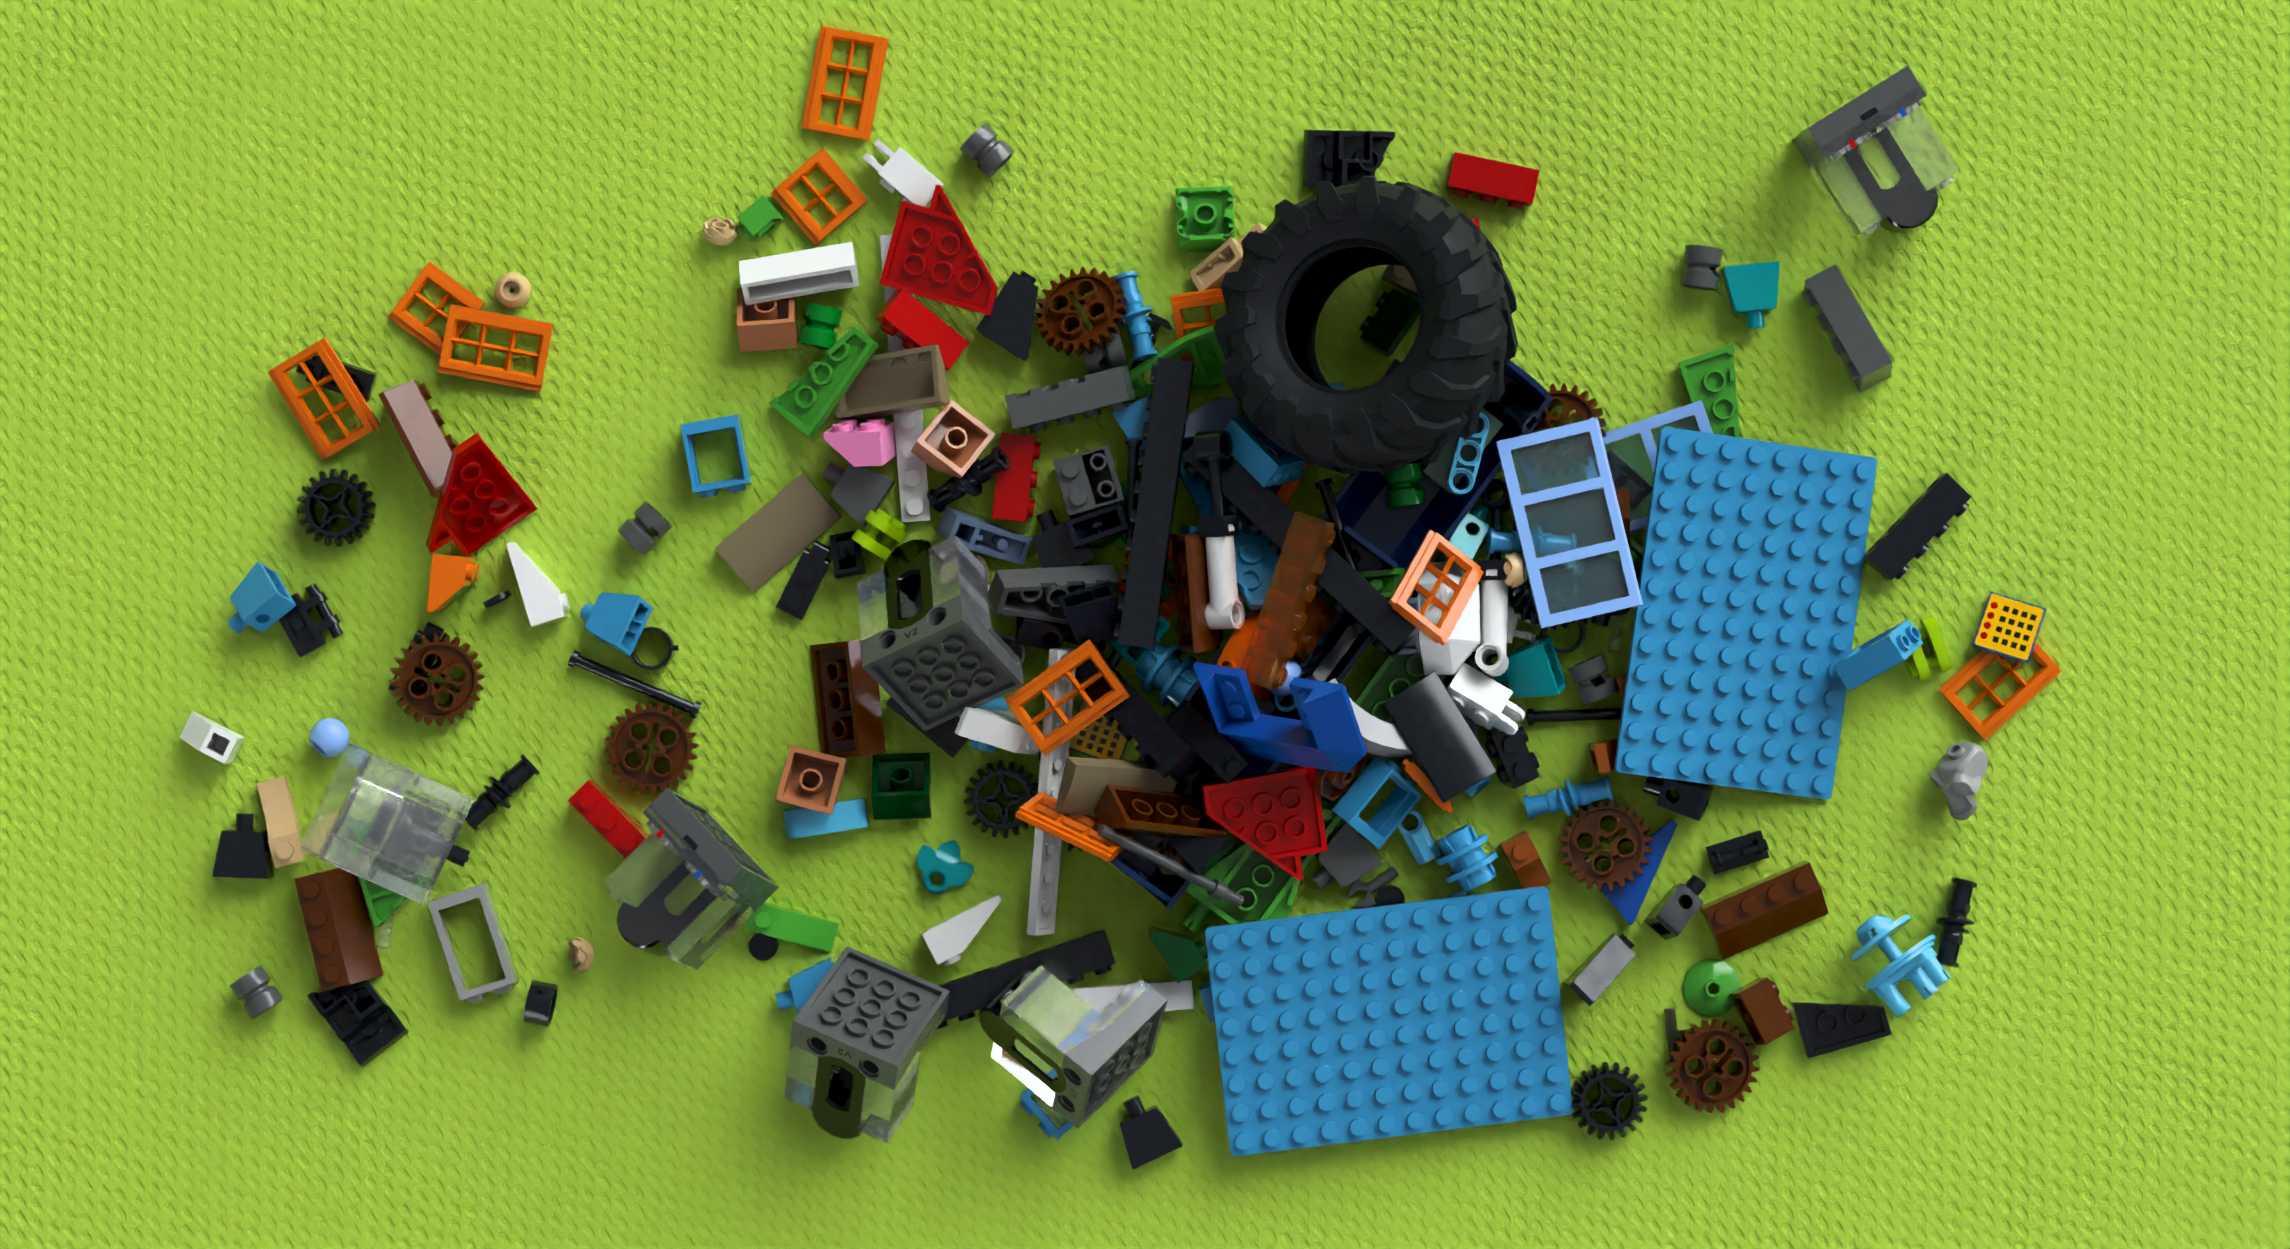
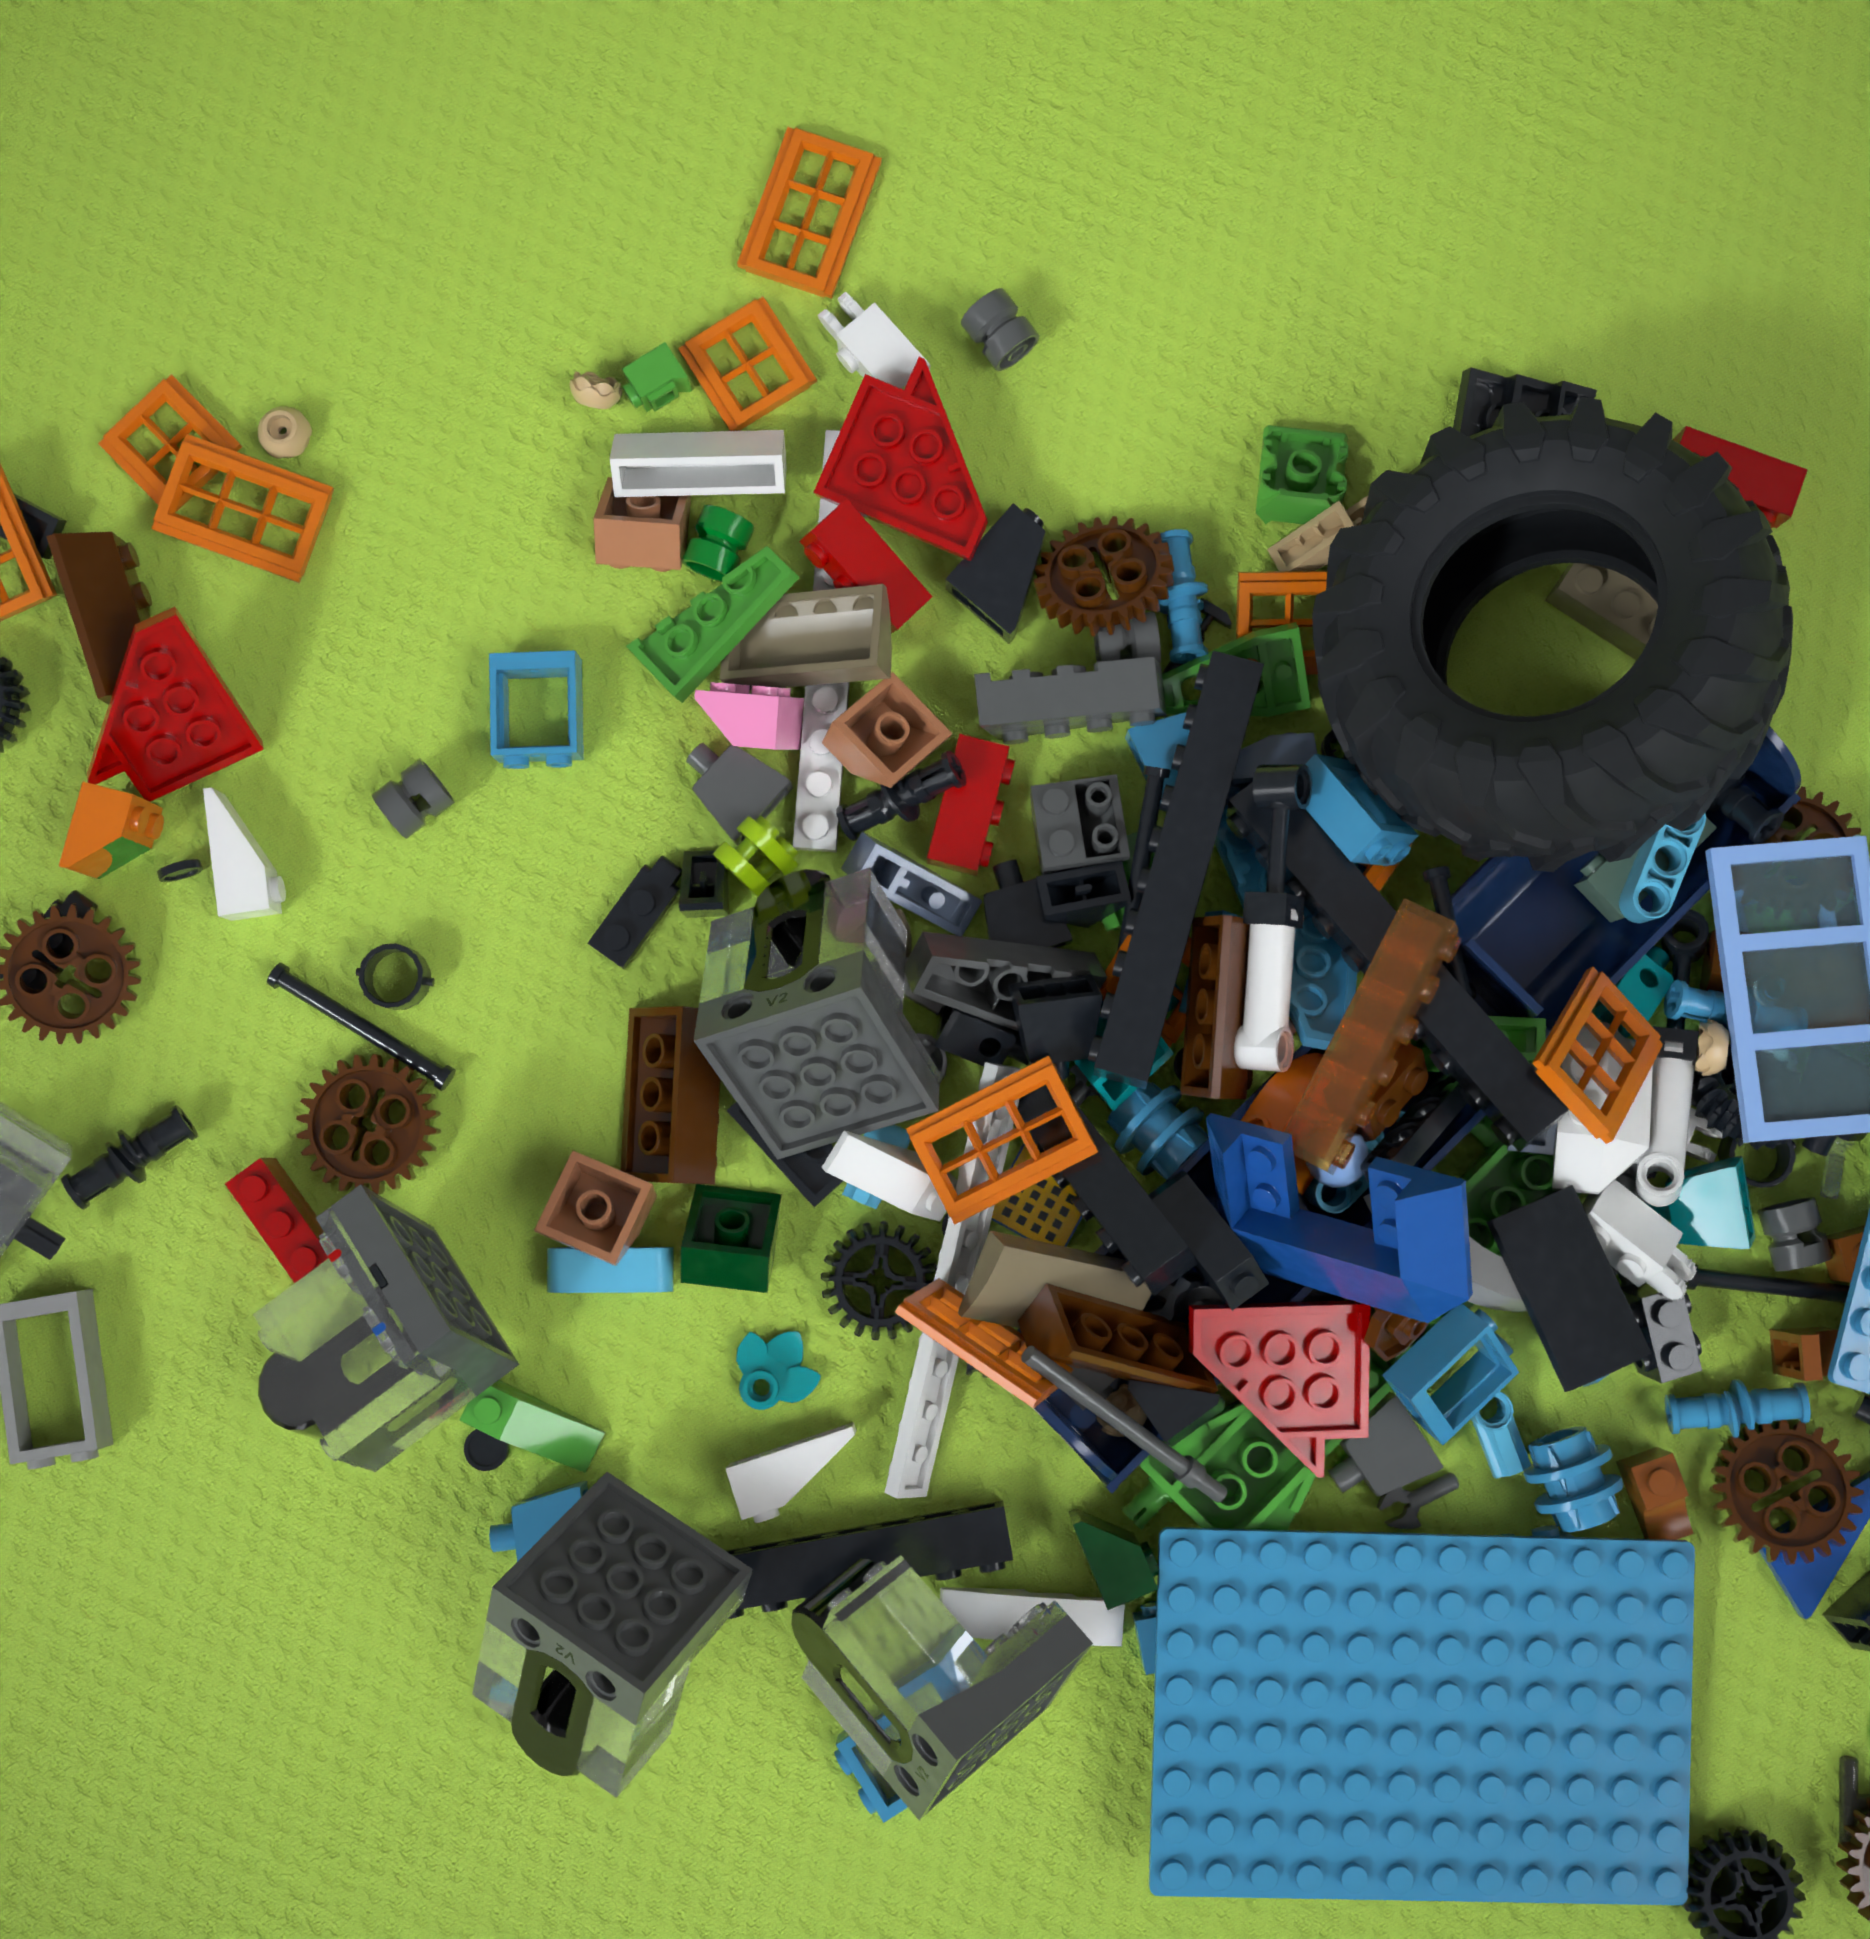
camera: 15 degrees right, 5 degrees down
(540, 1003) = (133, 1486): black piece -> none
(581, 954) = (209, 1419): tan plate -> none
(617, 620) = (348, 925): dark azure torso -> none
(778, 532) = (608, 835): dark tan slope -> none
(1147, 1133) = (1023, 1832): black torso -> none
(1389, 895) = (1441, 1518): black piece -> none
(1390, 322) = (1559, 658): dark green slope -> none
(1405, 486) = (1554, 899): green wheel -> none
(1424, 784) = (1530, 1359): orange piece -> none
(1601, 967) = (1756, 1683): slope -> none

